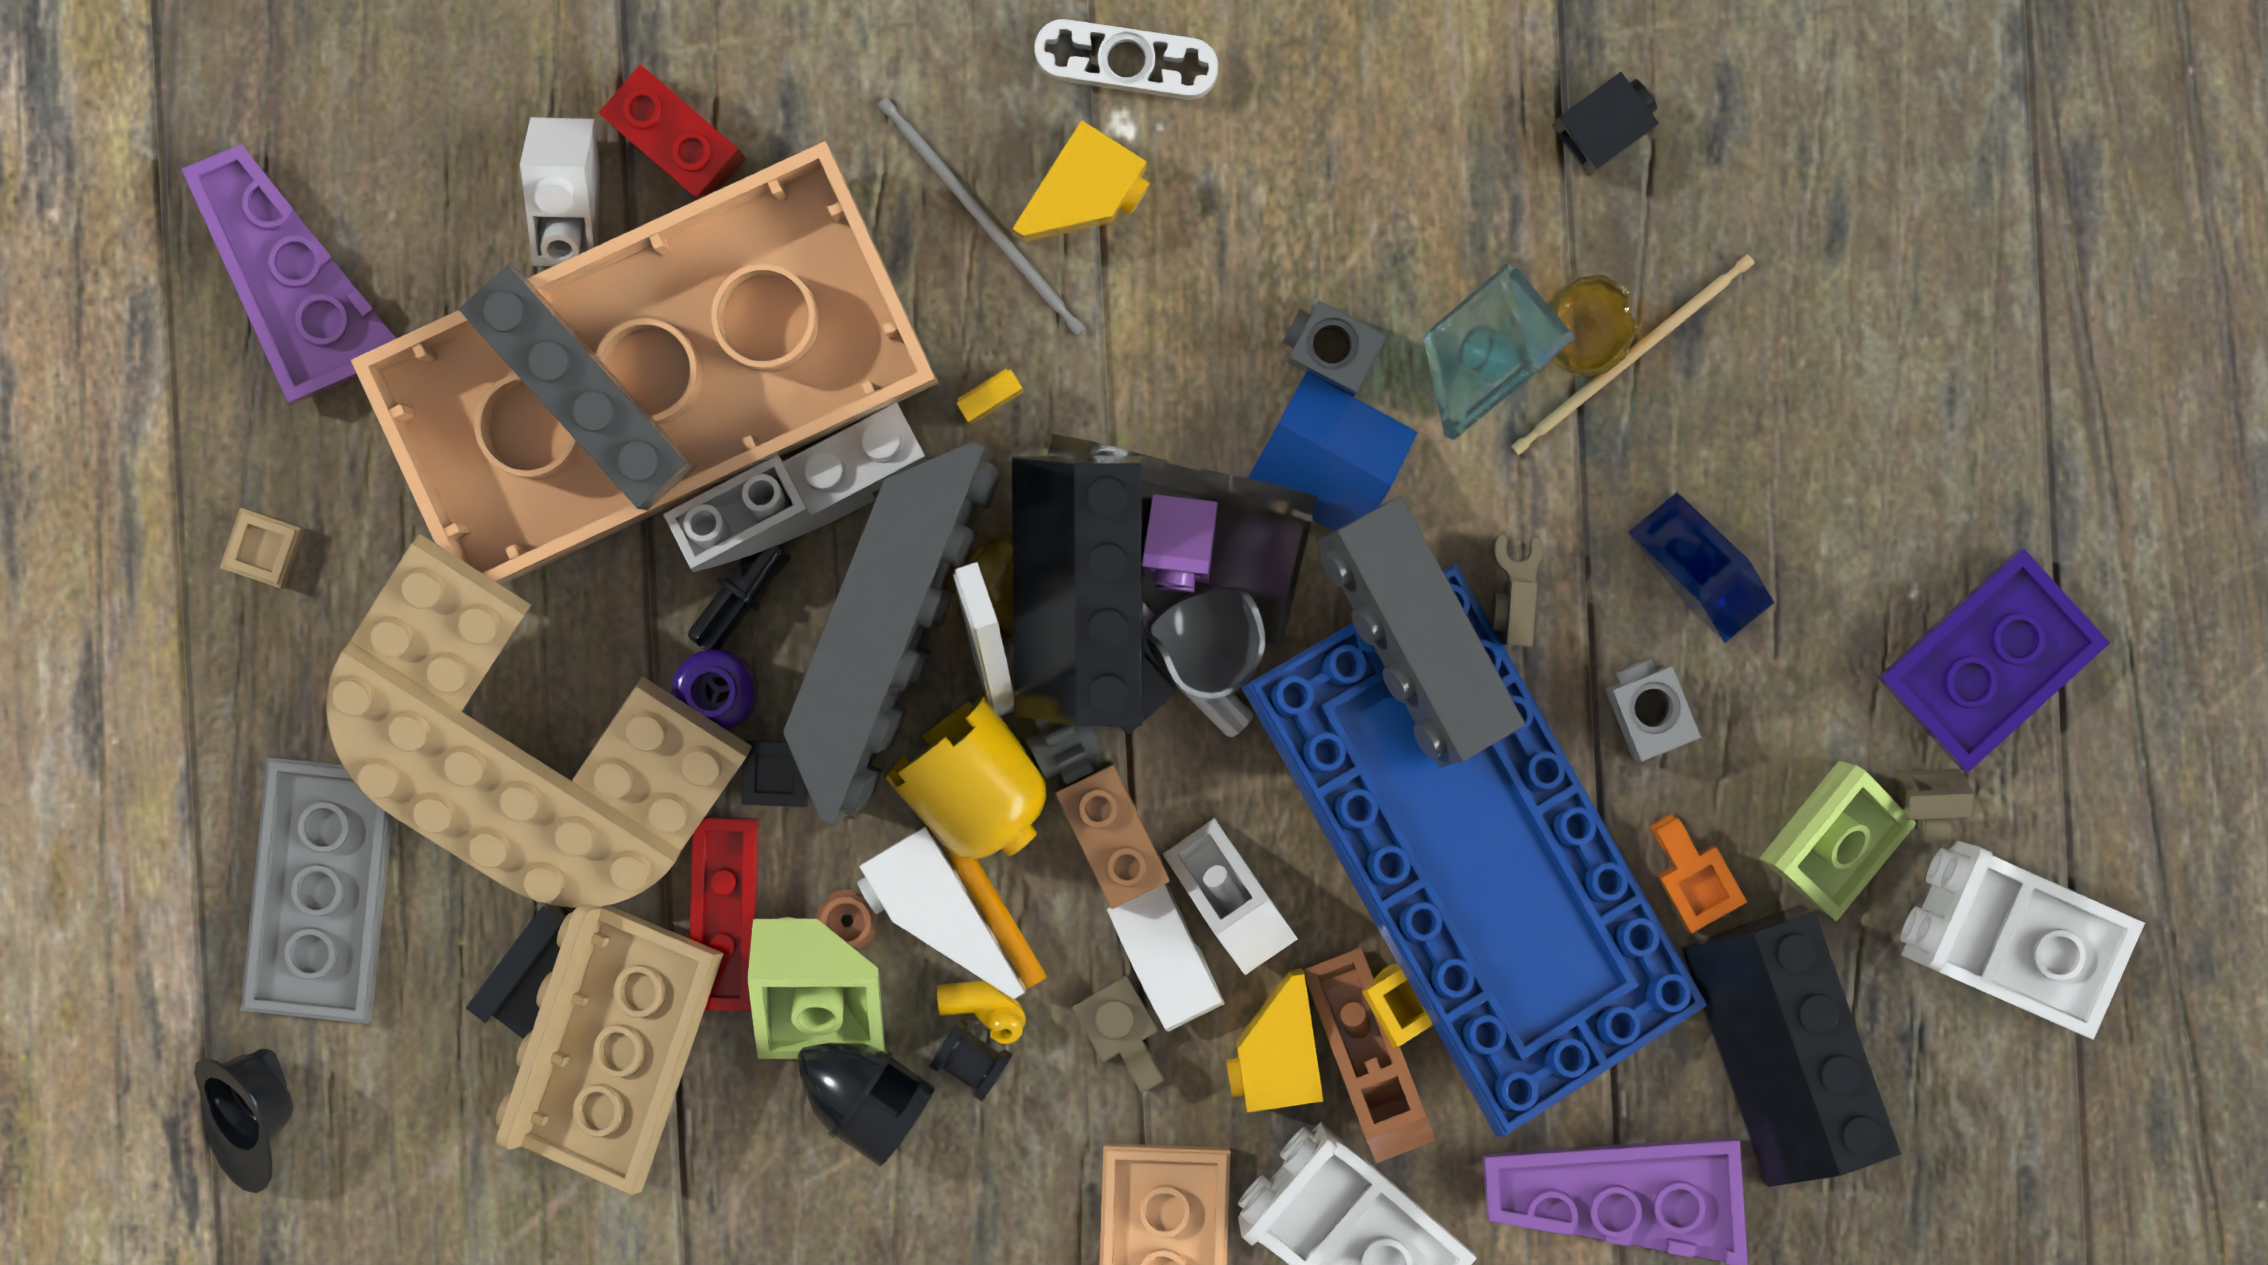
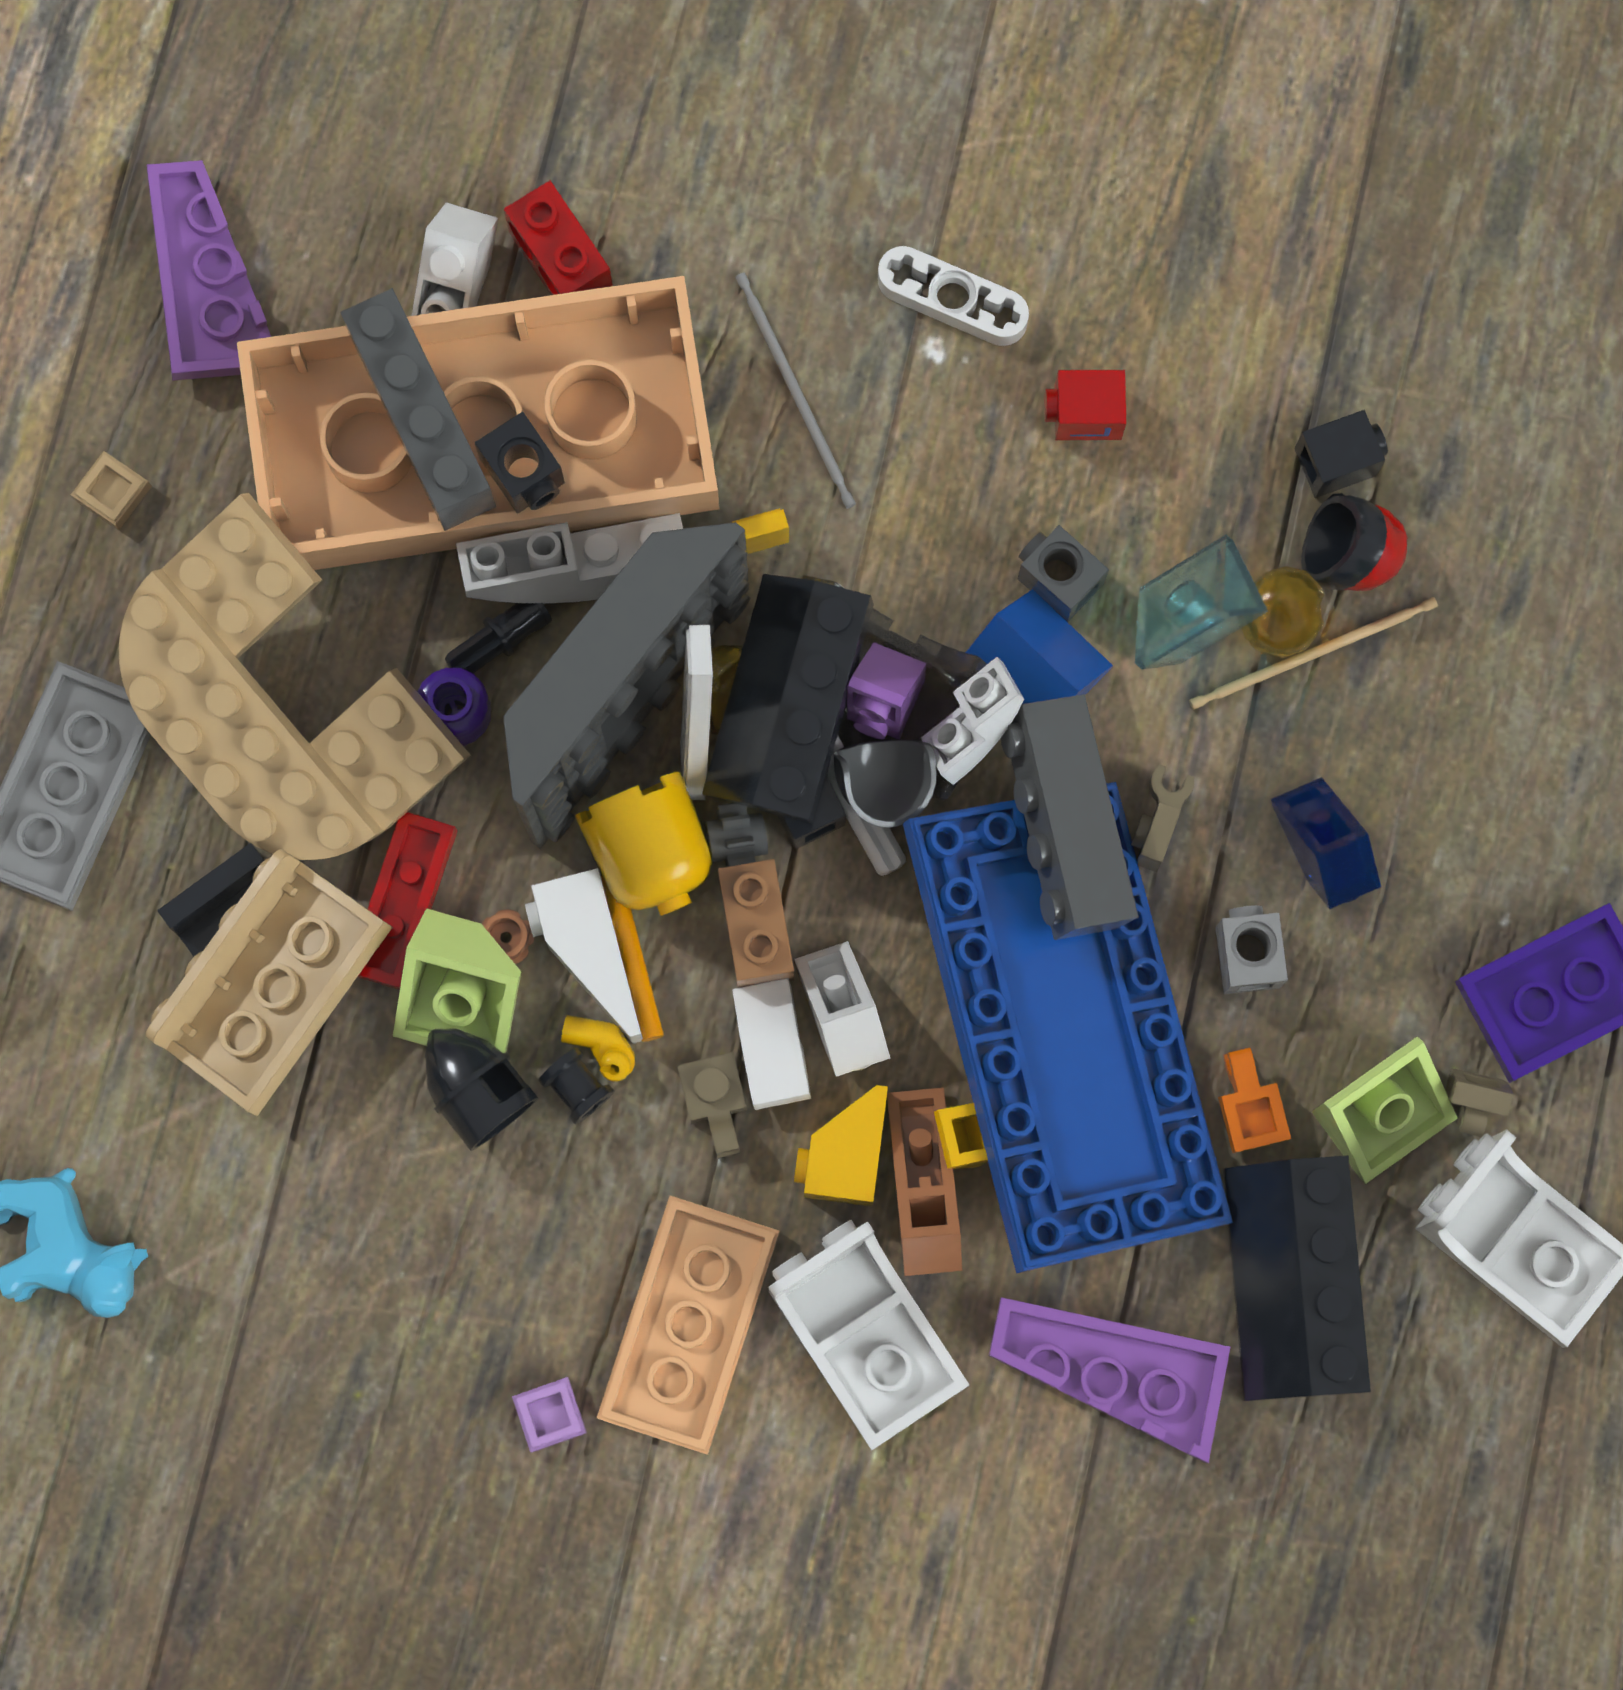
camera: 20 degrees right, 10 degrees down
(683, 407) = (515, 441): none -> black brick
(772, 776) = (481, 795): black plate -> none
(1084, 187) = (886, 385): yellow slope -> none
(1292, 559) = (968, 734): none -> white slope
(1311, 147) = (1087, 405): none -> red brick
(1646, 225) = (1353, 544): none -> black piece

